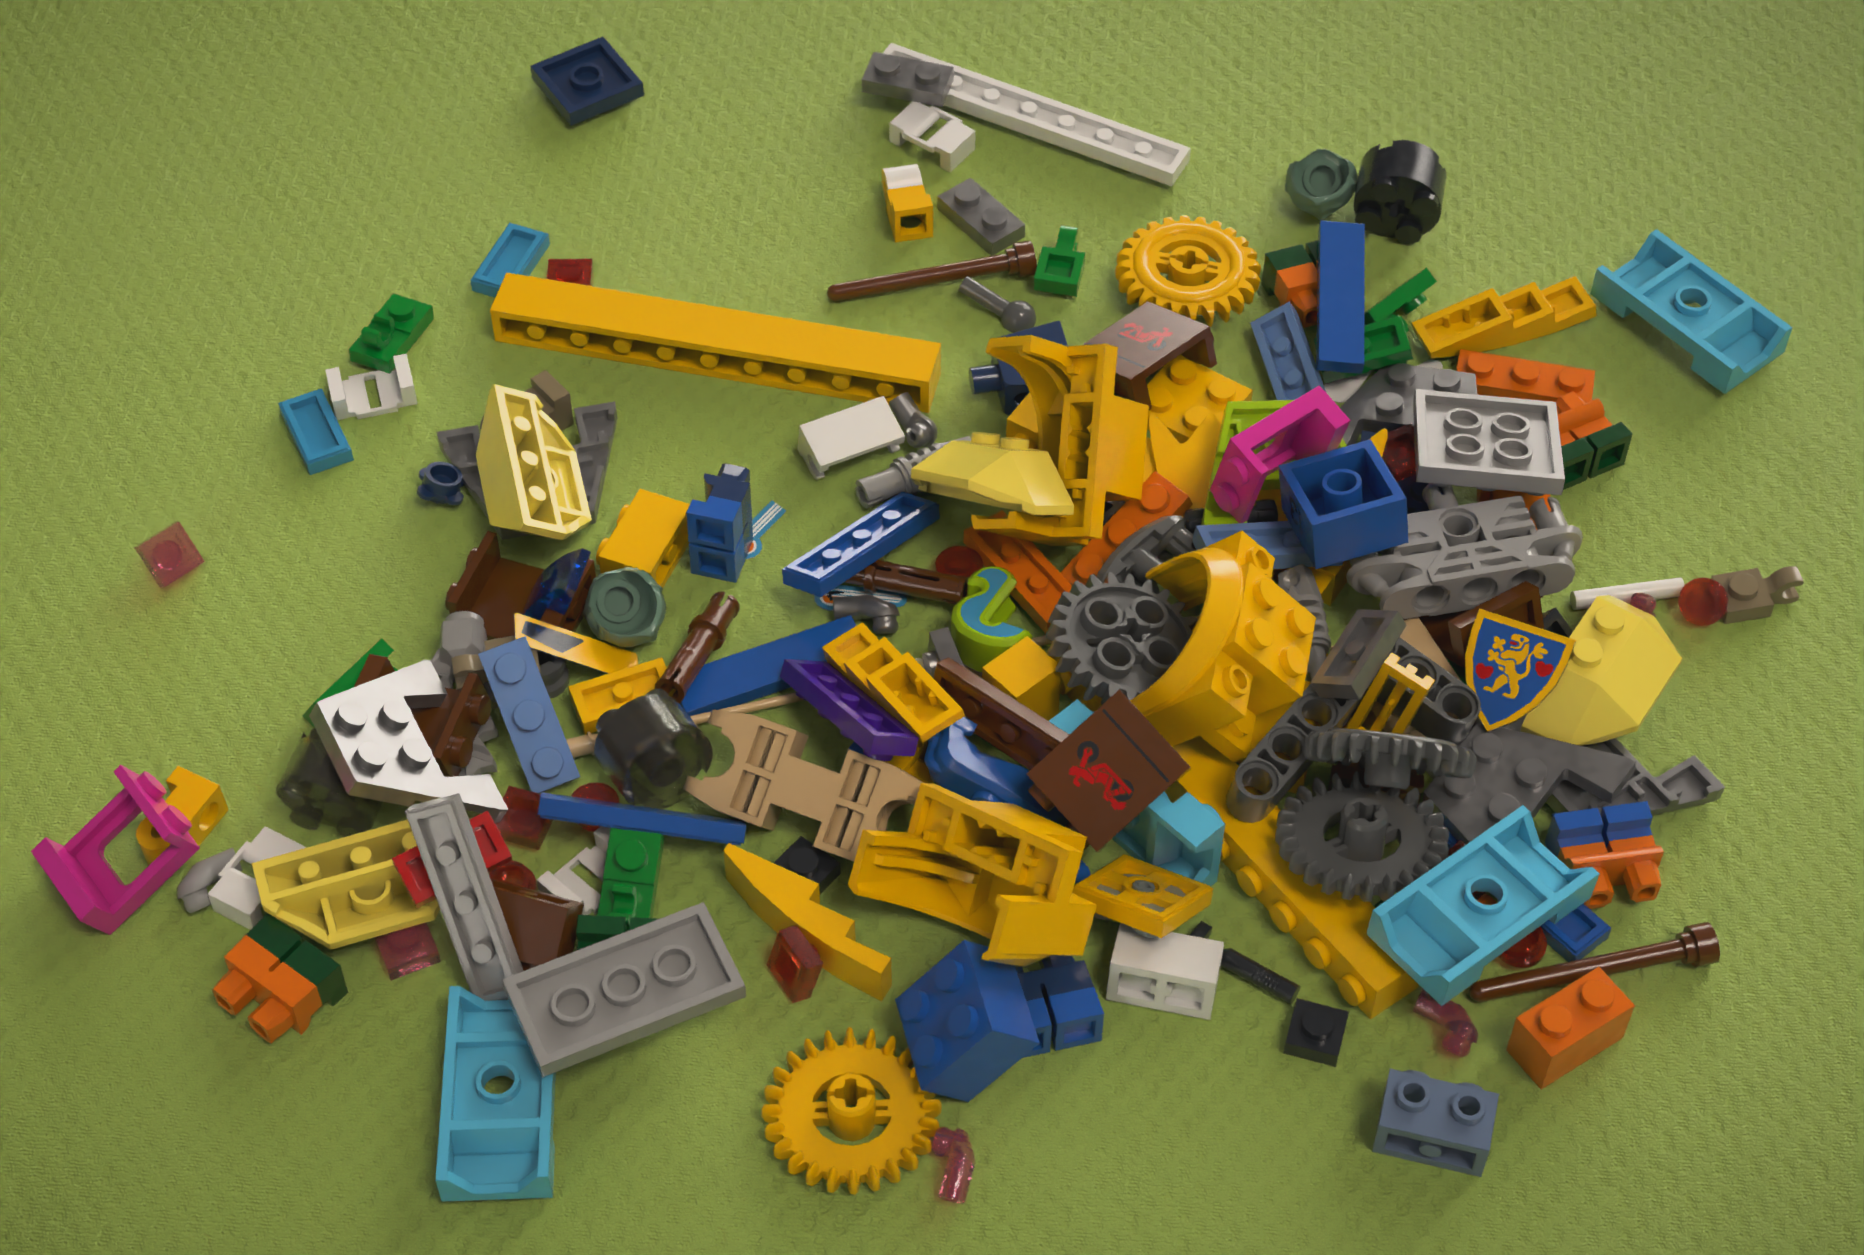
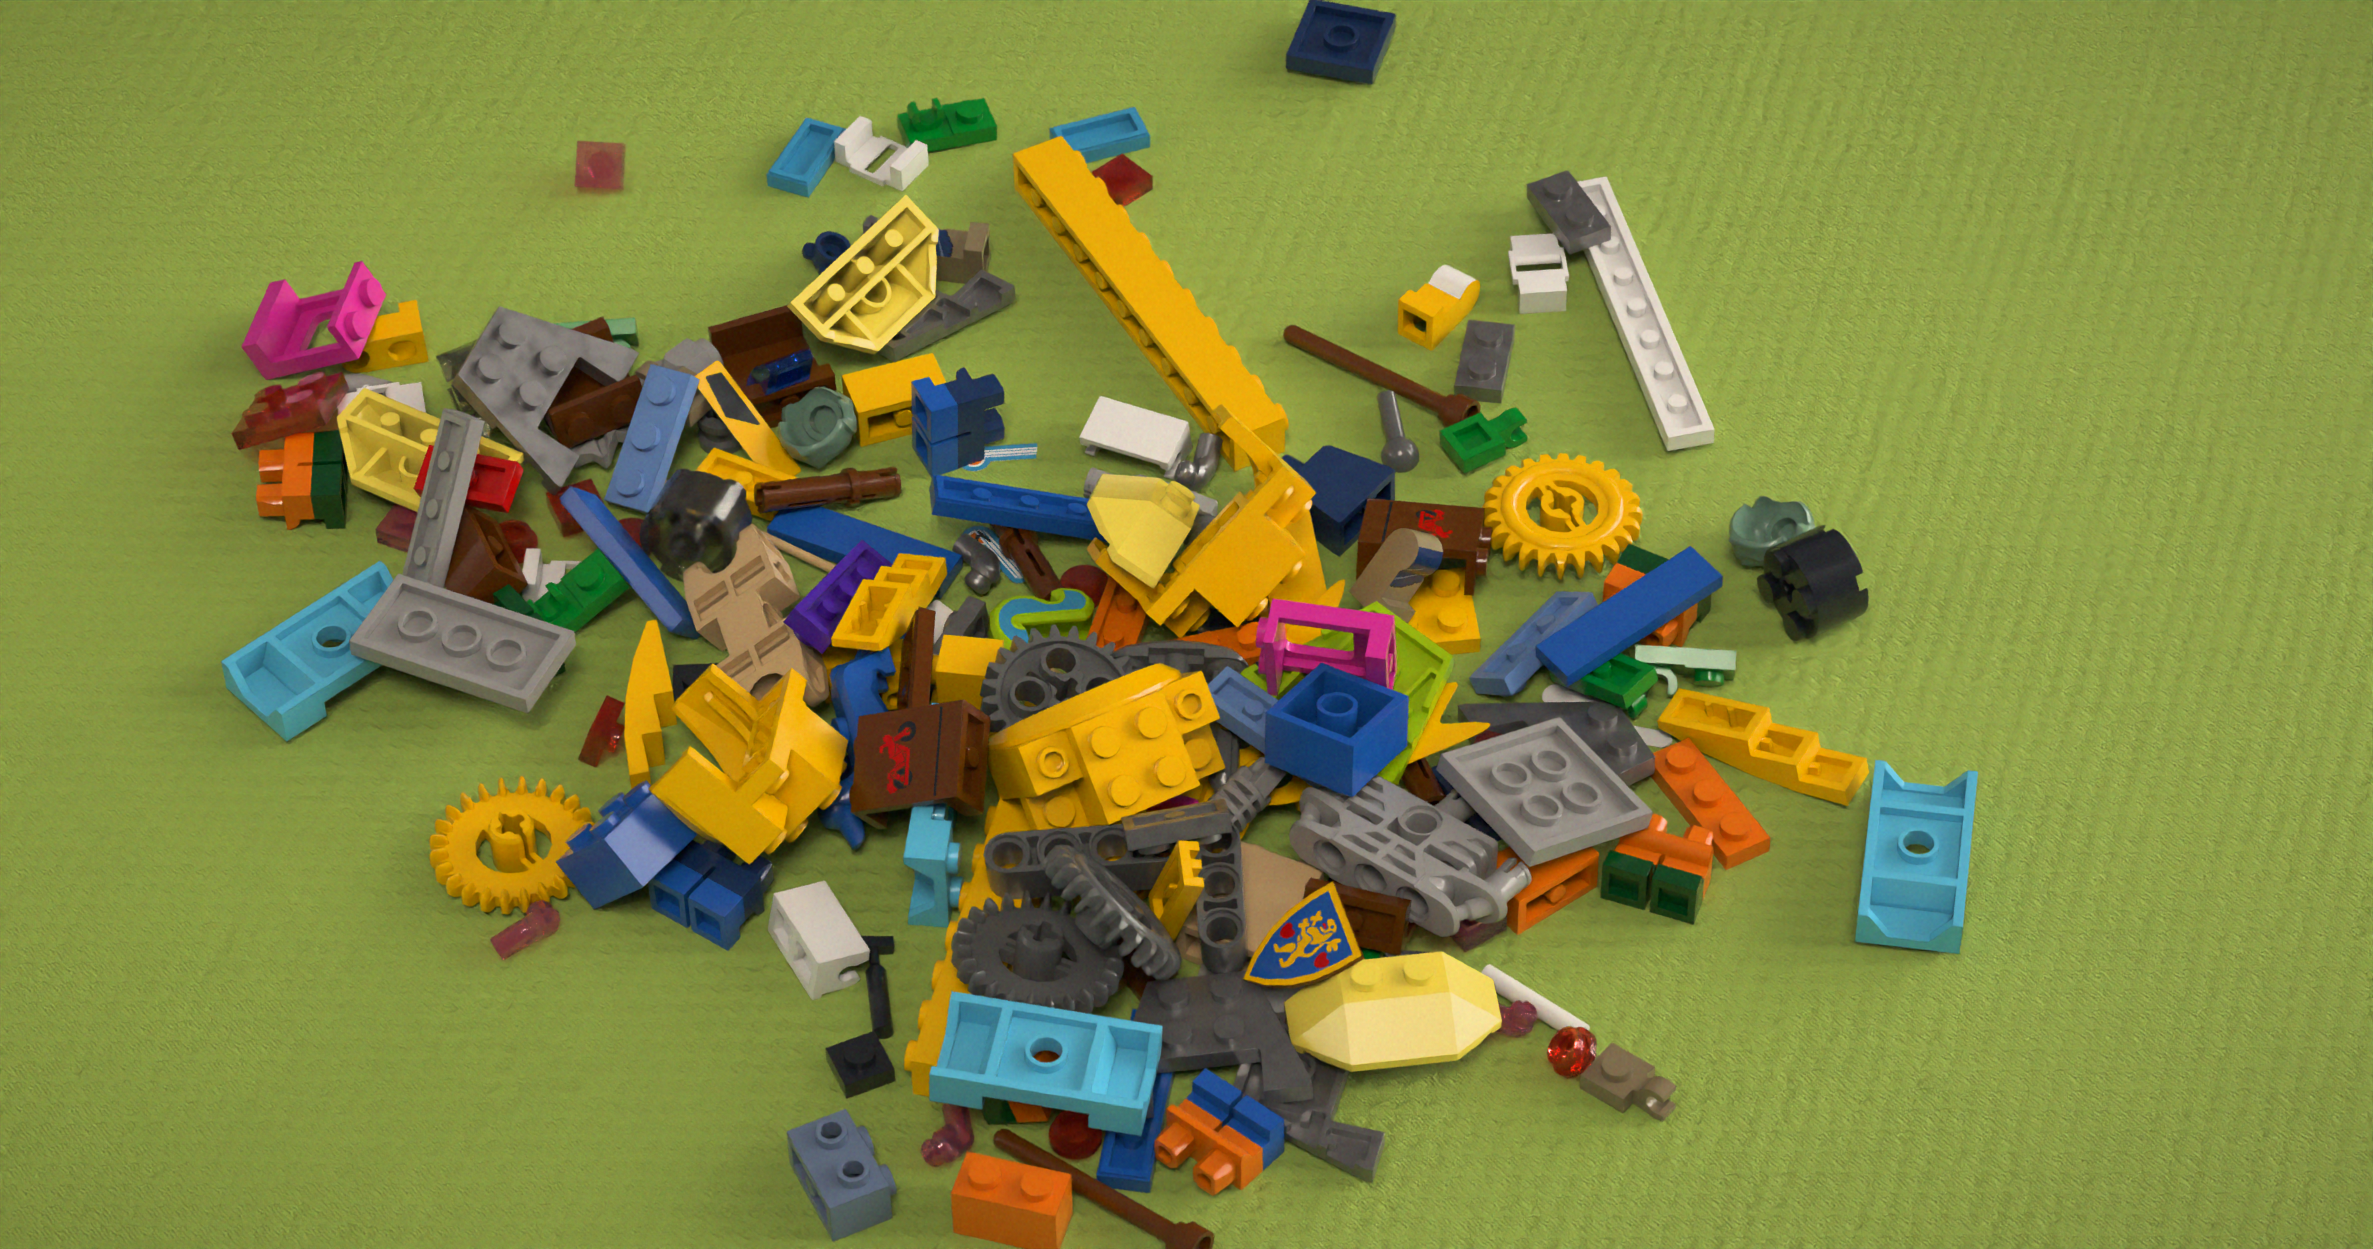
camera: 50 degrees right, 5 degrees down
(196, 936) = (290, 410): none -> clear red plate
(1144, 896) = (861, 877): yellow piece -> none
(1184, 362) = (1398, 571): none -> dark tan leg

